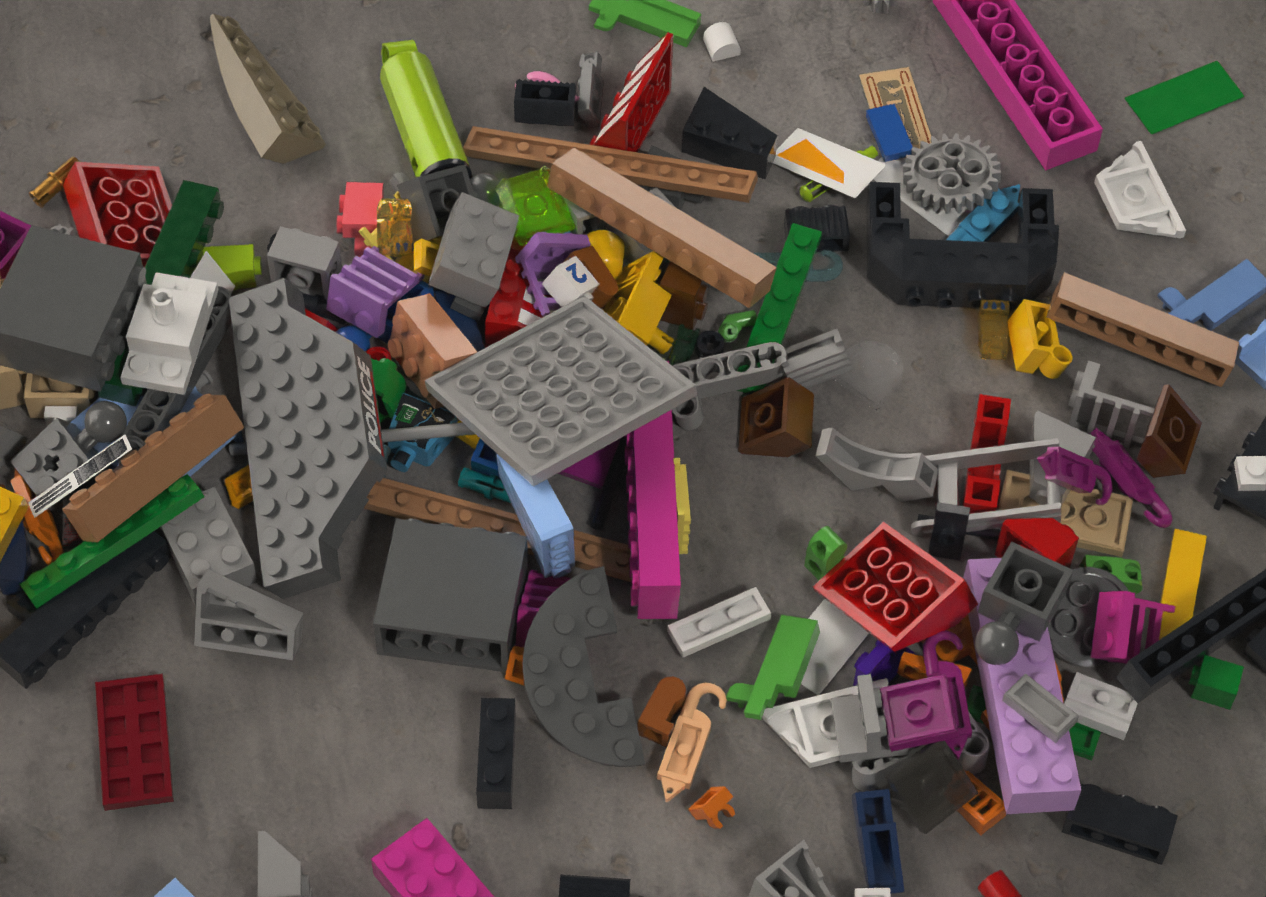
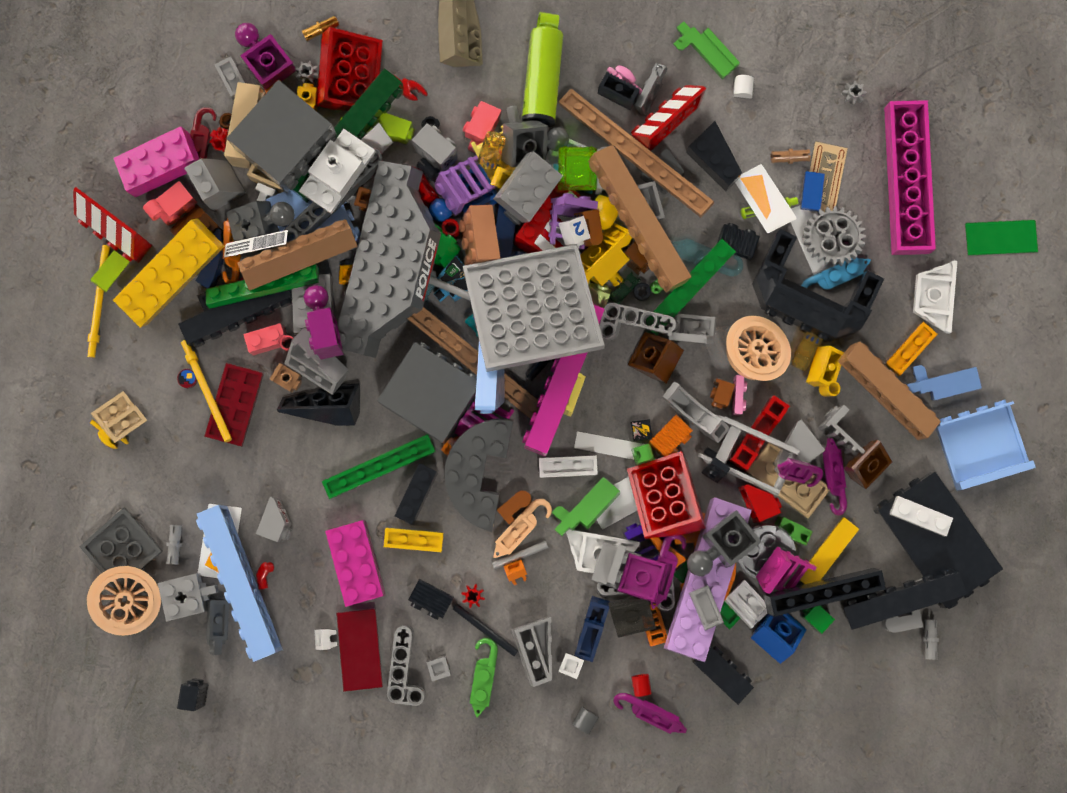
camera: 25 degrees right, 25 degrees up
(35, 701) = (192, 359): none -> yellow bar
(37, 735) = (187, 378): none -> tile
(152, 622) = (266, 339): none -> coral hinge
(208, 678) = (279, 374): none -> medium nougat brick
(225, 377) = (362, 198): none -> dark orange brick
(233, 206) = (410, 85): none -> red hand
(241, 545) = (322, 324): none -> magenta brick
(307, 679) = (335, 409): none -> black wedge
(414, 740) = (378, 466): none -> green plate
(522, 826) = (413, 540): none -> yellow plate
(664, 877) = (468, 594): none -> red gear
(706, 782) = (519, 555): none -> light grey bar
(759, 575) = (605, 445): none -> white sticker
(803, 528) = (641, 430): none -> tile
(834, 101) = (790, 156): none -> medium nougat pin
(858, 513) = (671, 436): none -> orange brick
(900, 429) = (721, 394): none -> dark orange brick
(921, 348) = (756, 349): none -> light nougat piece
(923, 417) = (739, 404): none -> bright pink plate
(1144, 269) = (911, 348): none -> light orange tile
(1171, 731) = (779, 636): none -> blue slope

